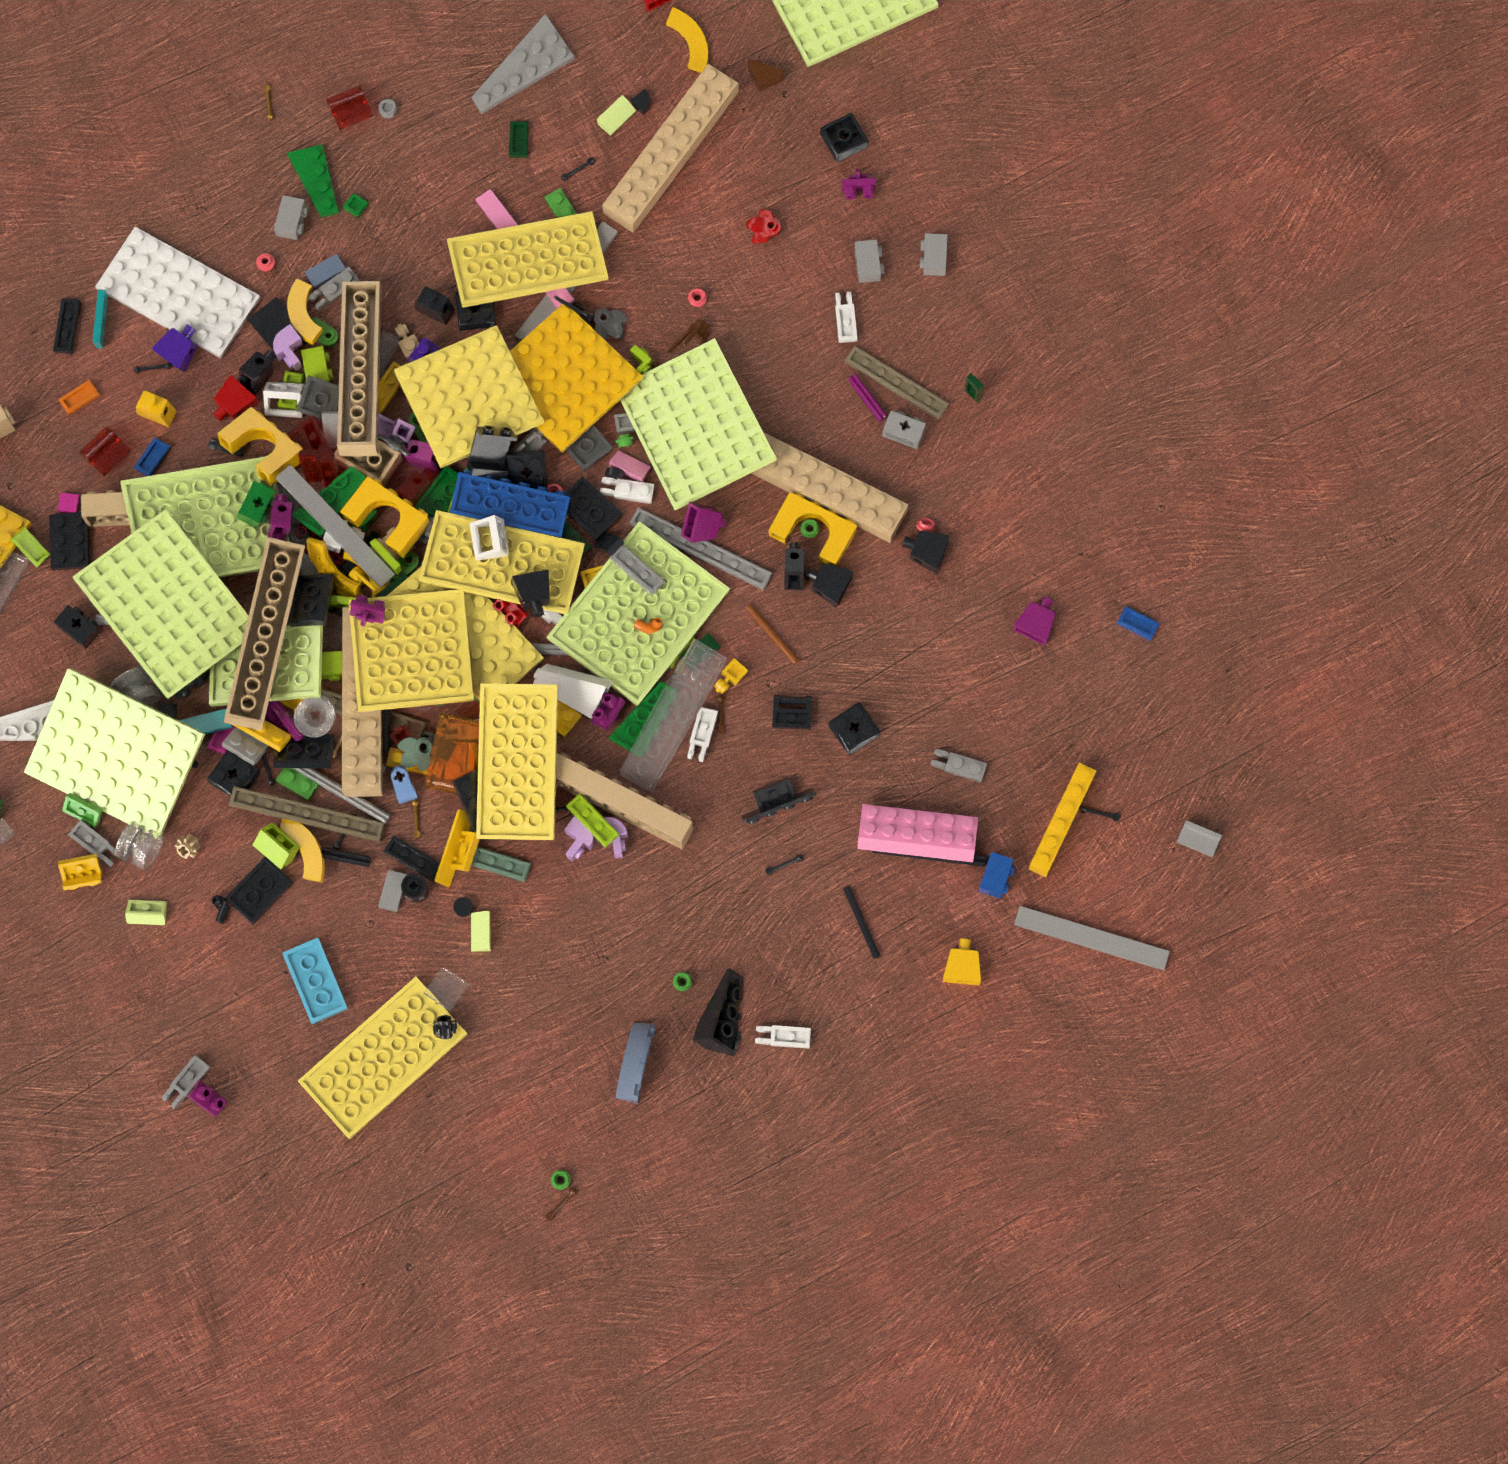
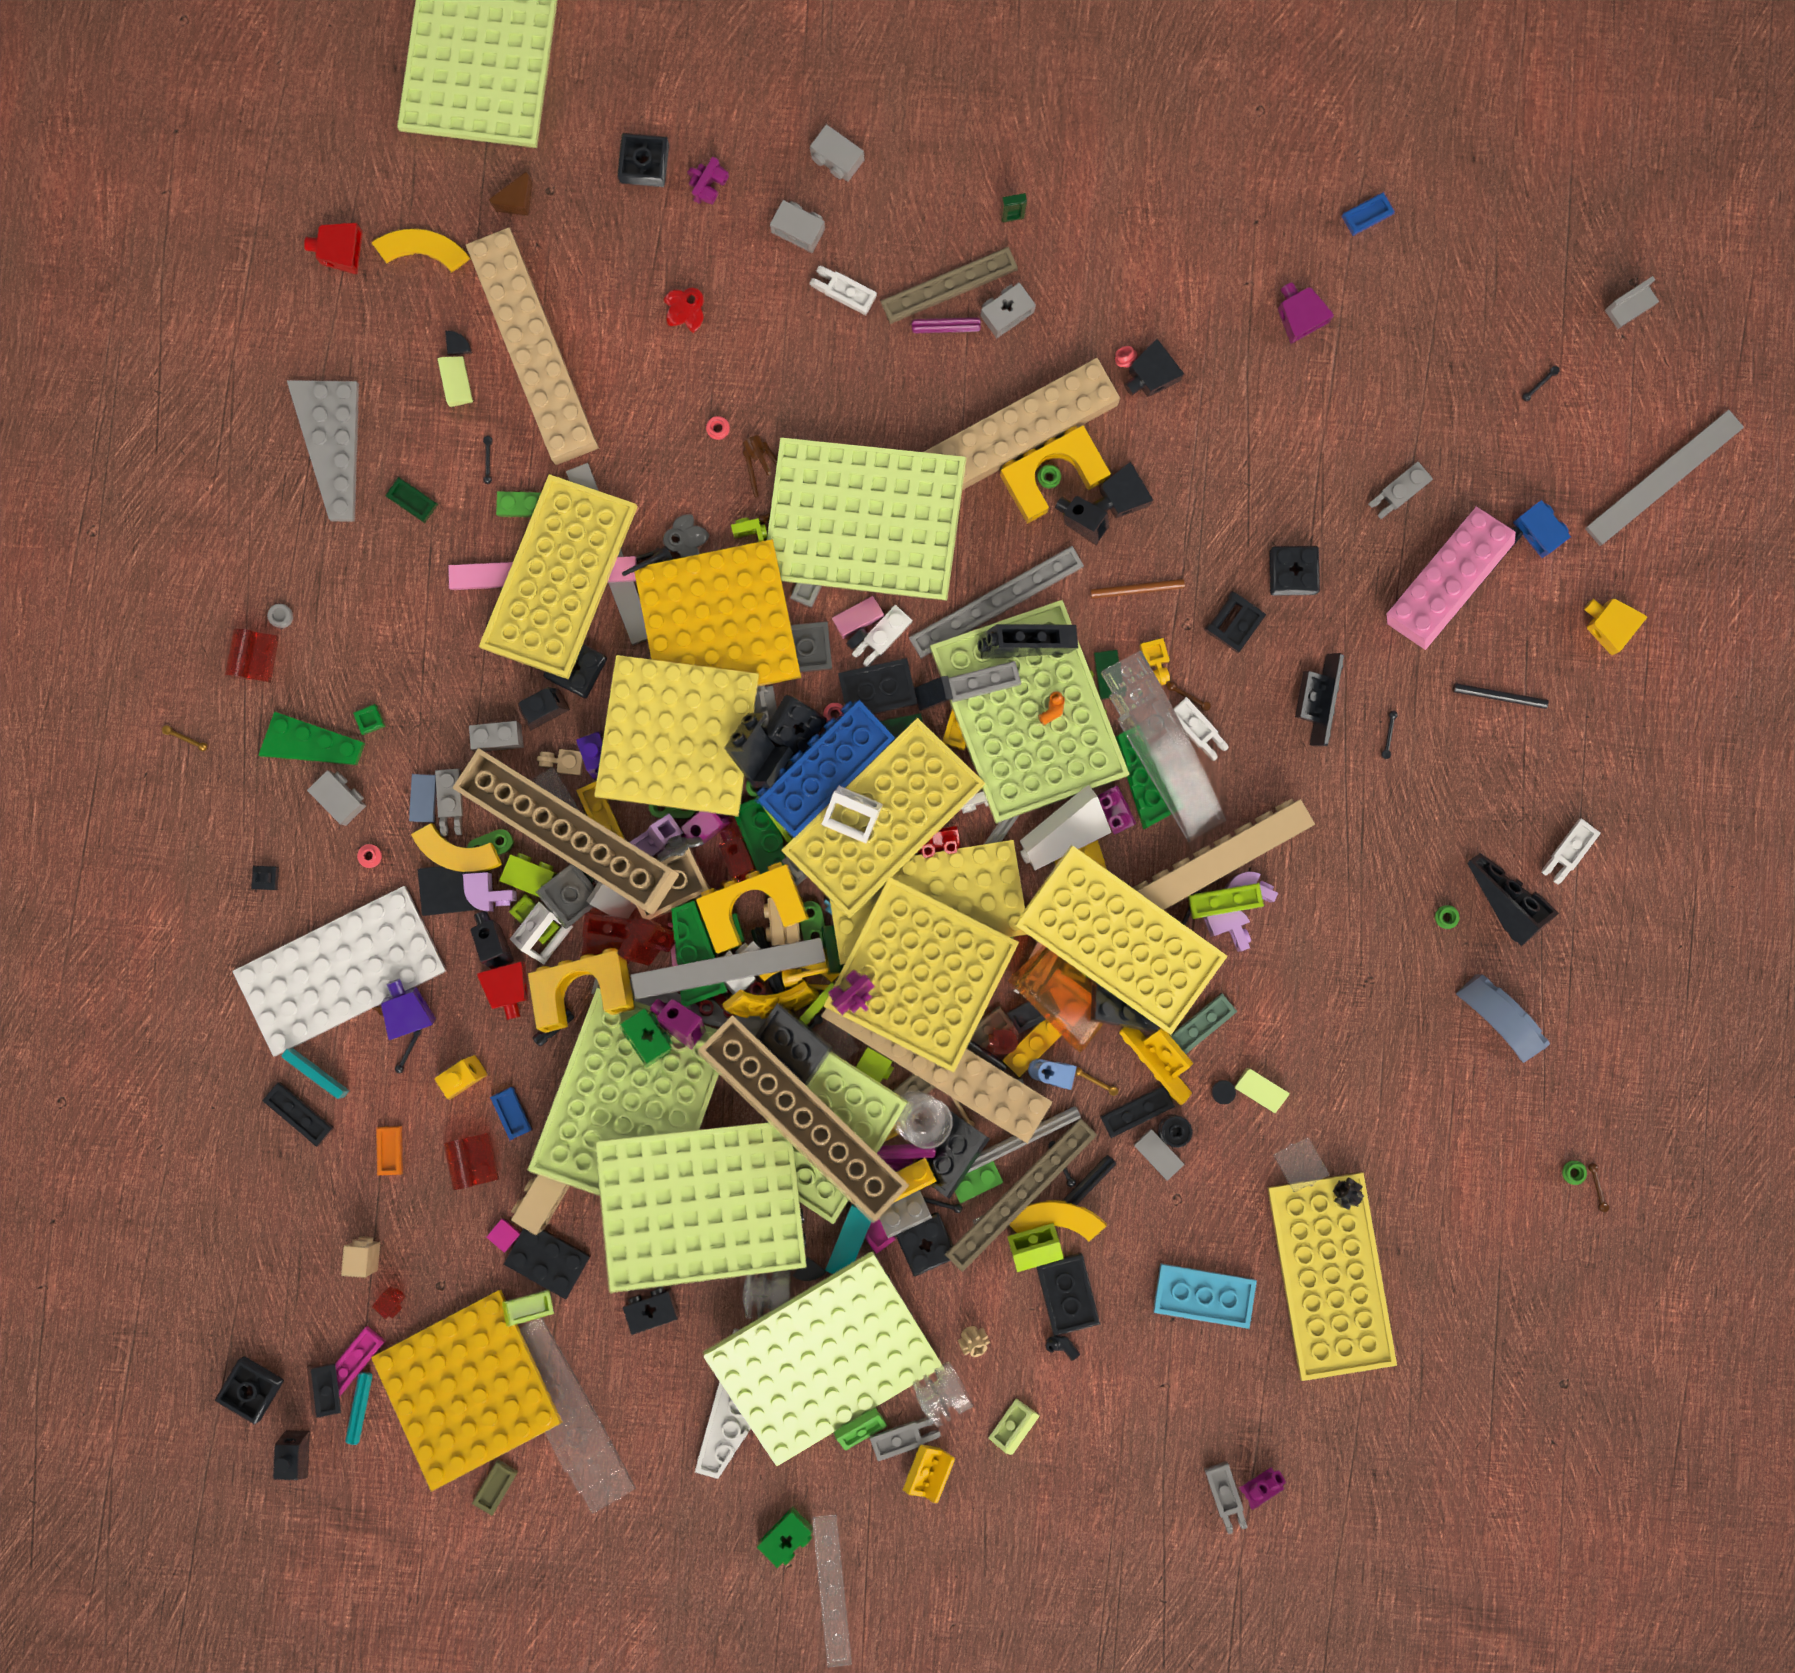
camera: 60 degrees left, 10 degrees up
(209, 208) = (265, 877): none -> black tile
(386, 556) = (796, 935): lime tile -> none
(396, 289) = (496, 736): none -> light grey brick
(413, 754) = (1031, 1041): sand green plate -> none
(532, 591) = (942, 804): black torso -> none
(624, 440) = (827, 604): bright green plate -> none
(683, 579) = (1027, 640): none -> black slope
(702, 523) = (975, 582): magenta torso -> none
(1062, 820) = (1528, 424): yellow brick -> none

